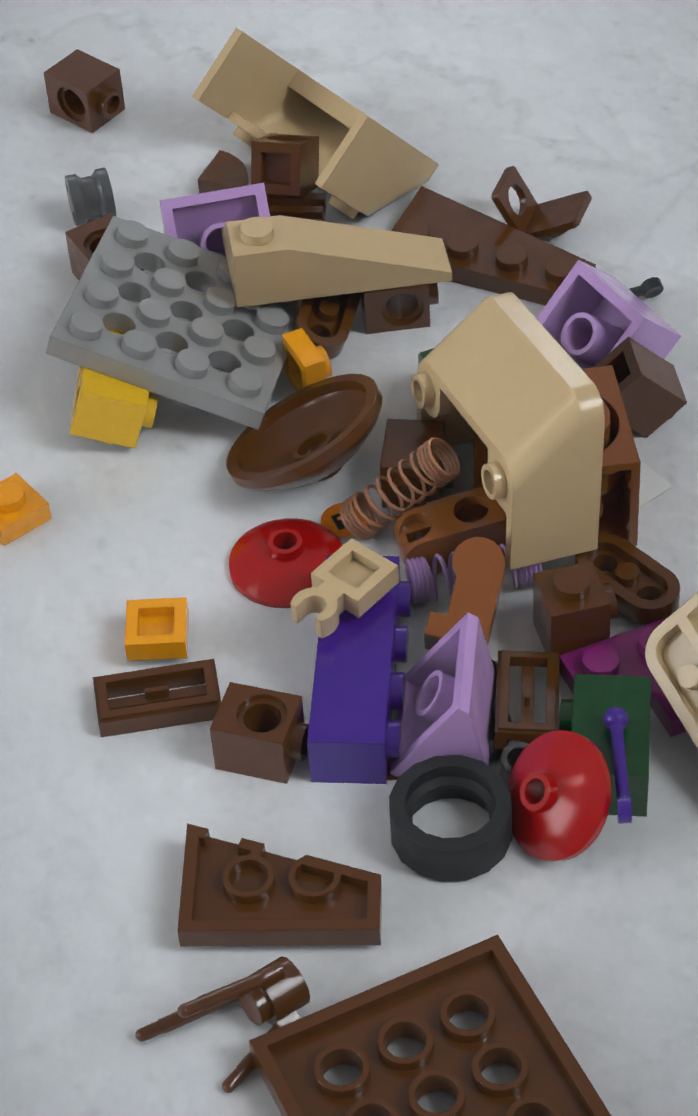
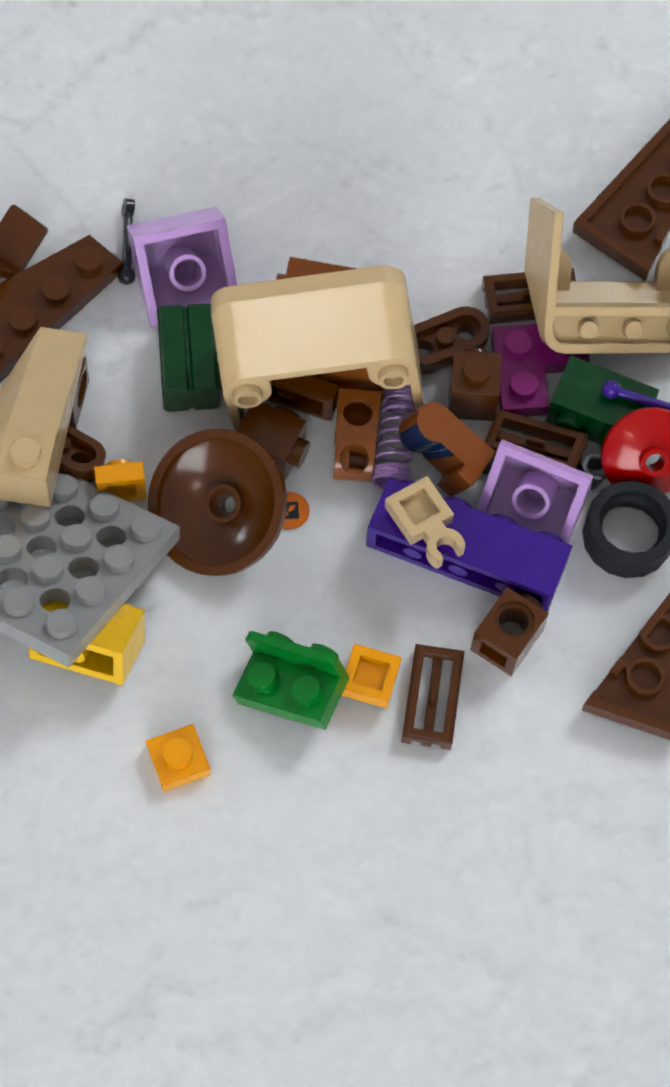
camera: 80 degrees left, 20 degrees up
(121, 557) = (291, 679): none -> green bracket
(278, 559) = (319, 585): red dish -> none
(366, 506) = (326, 412): nougat piece -> none
(646, 385) = (262, 254): reddish brown brick -> none

